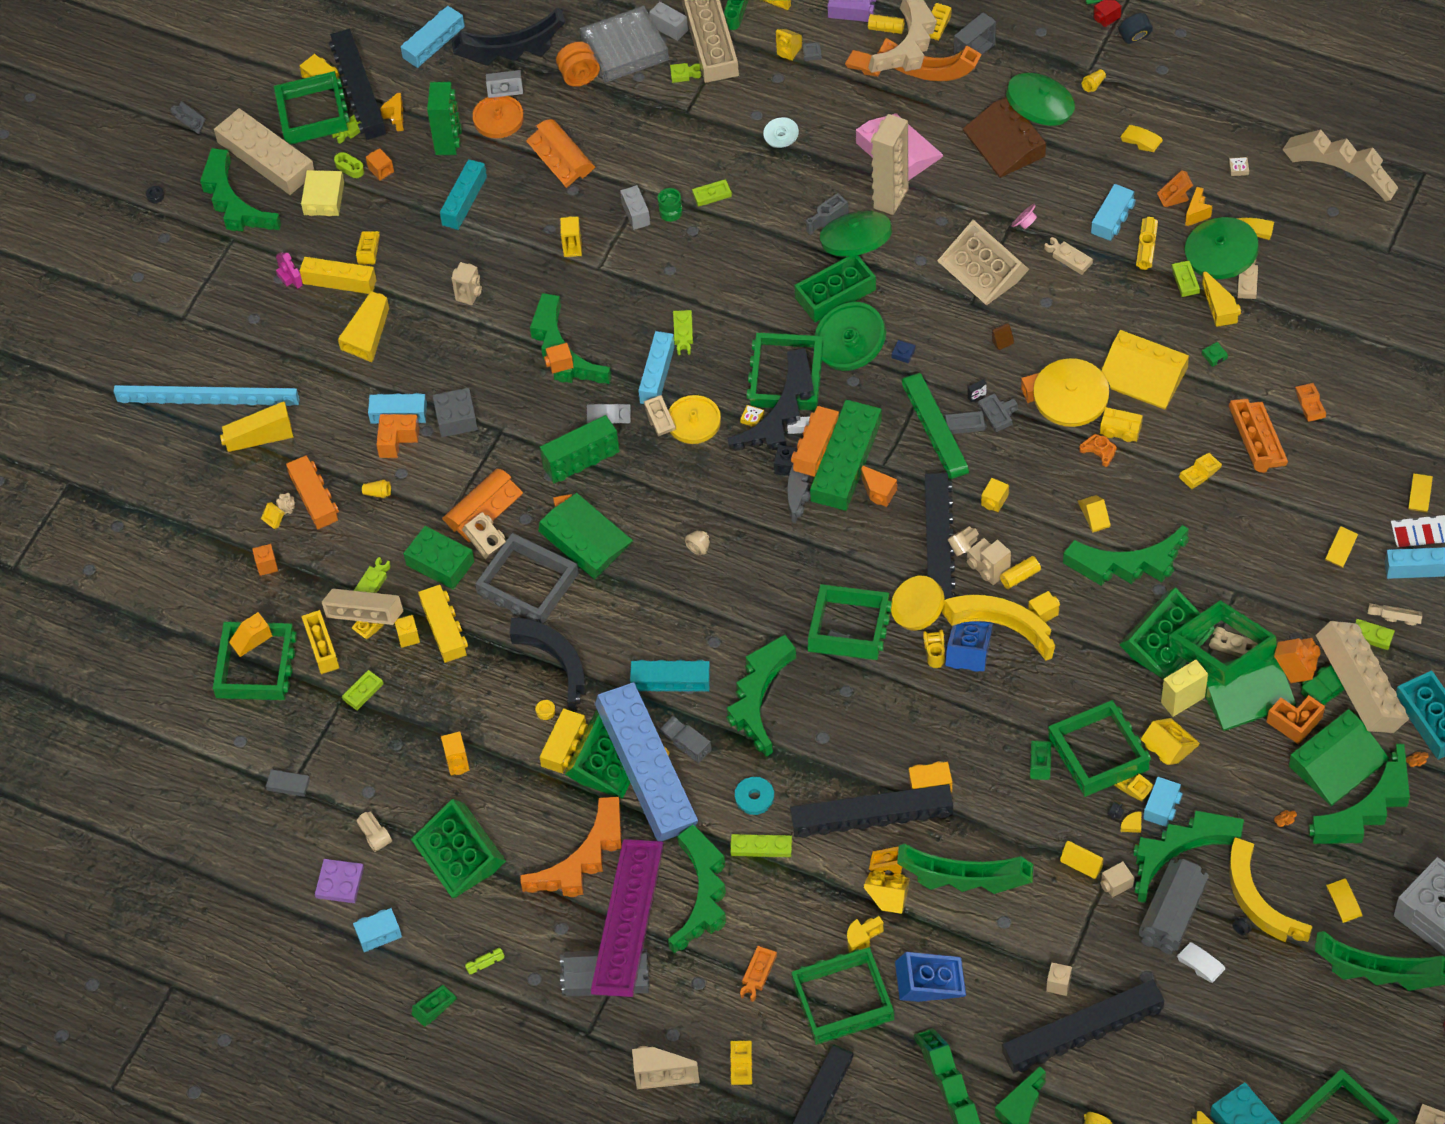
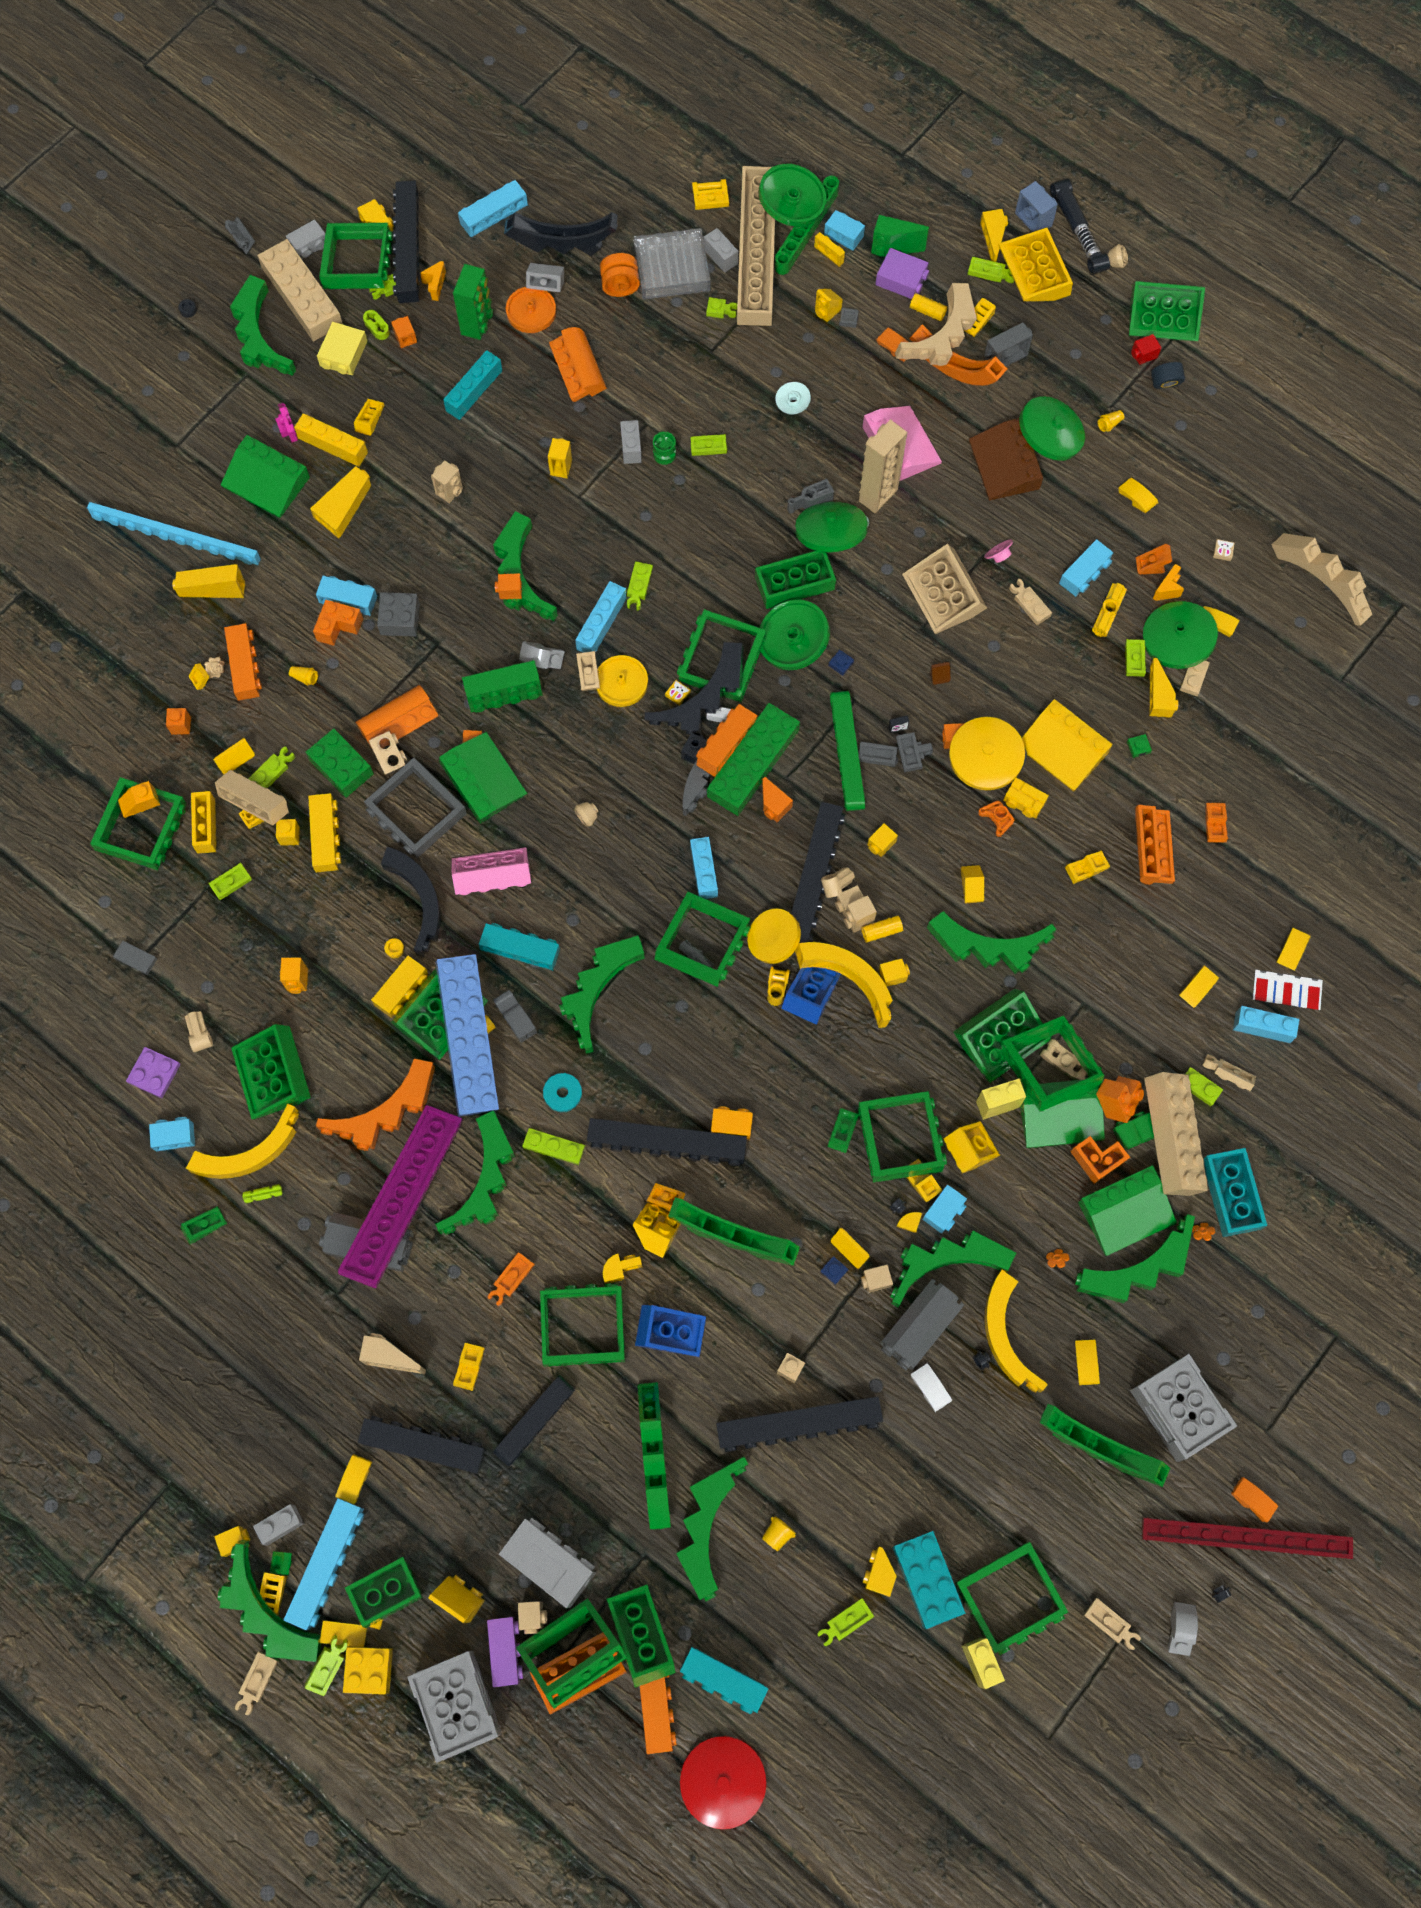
camera: 10 degrees right, 15 degrees up
(258, 104) = (307, 239): none -> light grey brick
(281, 323) = (264, 476): none -> green slope
(330, 578) = (234, 756): none -> yellow slope
(451, 941) = (250, 1160): none -> yellow arch
(620, 617) = (491, 871): none -> bright pink slope
(828, 560) = (704, 868): none -> medium azure brick
(1072, 885) = (834, 1270): none -> dark blue plate

